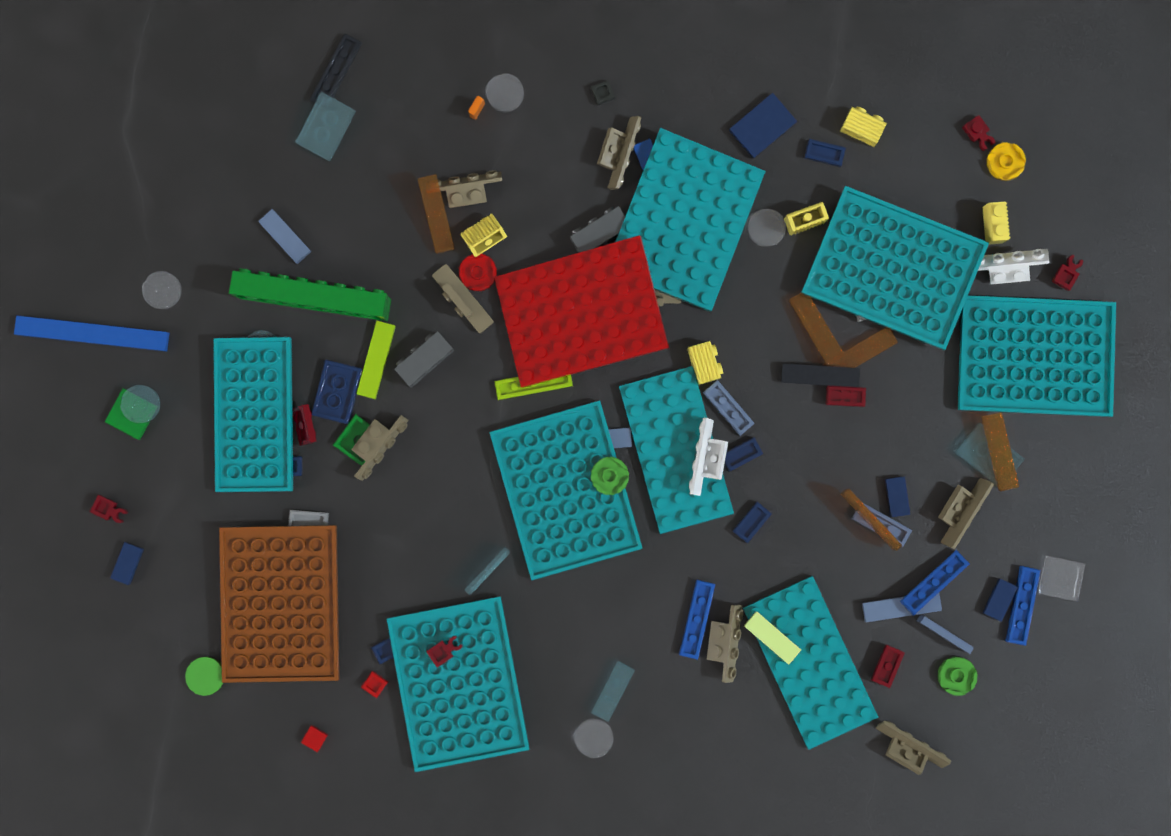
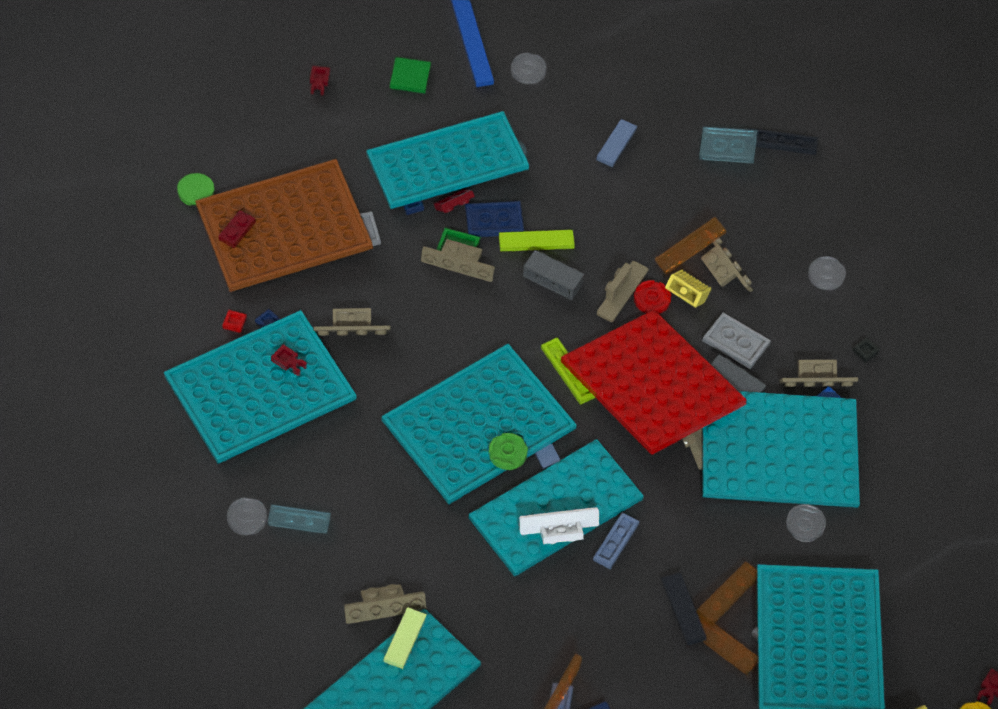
camera: 65 degrees right, 30 degrees down
(127, 563) = (276, 106): dark blue tile -> none
(140, 404) = (422, 76): clear light blue tile -> none
(272, 653) = (237, 229): none -> dark red plate
(309, 295) = (573, 171): green brick -> none
(314, 738) = (167, 287): red tile -> none
(415, 574) = (352, 320): none -> dark tan bracket
(476, 107) = (801, 252): orange tile -> none
(487, 571) = (376, 379): clear light blue tile -> none
(552, 211) = (736, 340): none -> light grey tile
(697, 619) = (397, 572): blue tile -> none
(704, 362) = (651, 504): light yellow brick -> none
(742, 454) = (575, 565): dark blue tile -> none
(752, 522) = (512, 594): dark blue tile -> none
(763, 125) = (902, 491): dark blue tile -> none
(806, 218) = (830, 548): light yellow brick -> none
(824, 153) = (902, 553): dark blue tile -> none
(846, 396) = (673, 640): dark red plate -> none
(863, 126) = (945, 576): light yellow brick -> none

